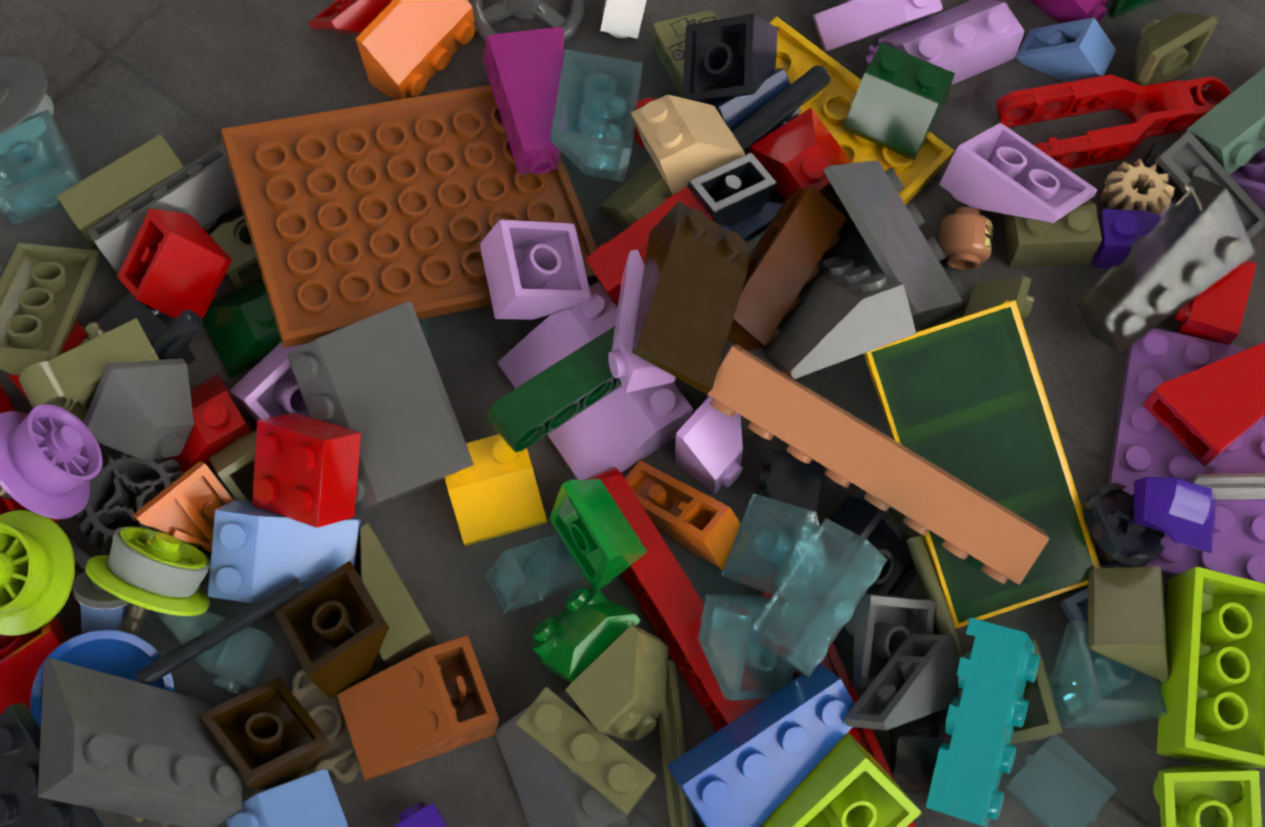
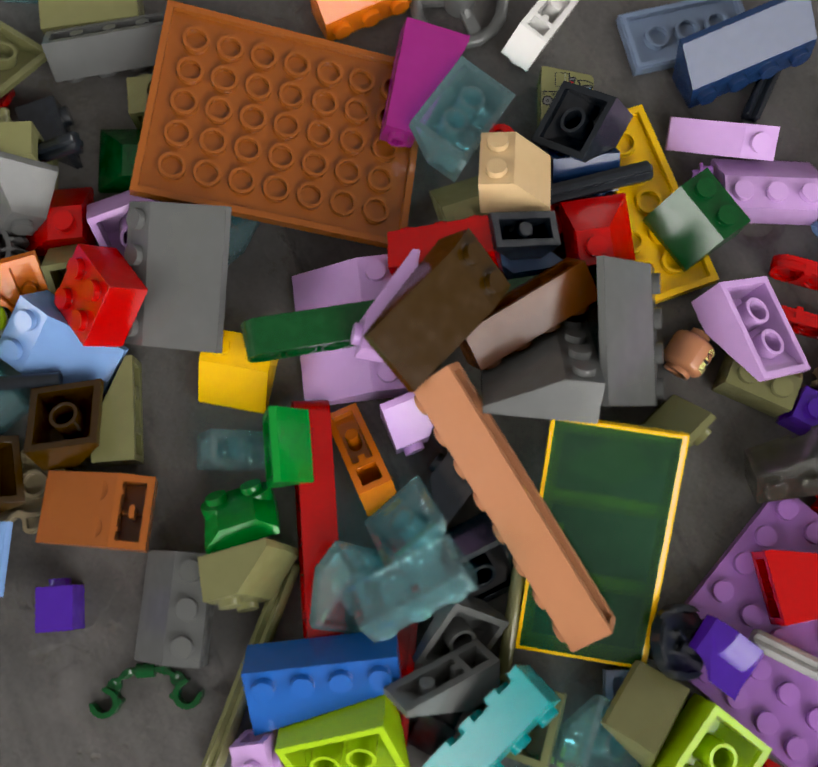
camera: 20 degrees right, 10 degrees up
(174, 264) = (92, 89): red slope -> none
(533, 269) = (345, 221): lavender slope -> none
(586, 751) = (194, 620): olive plate -> none

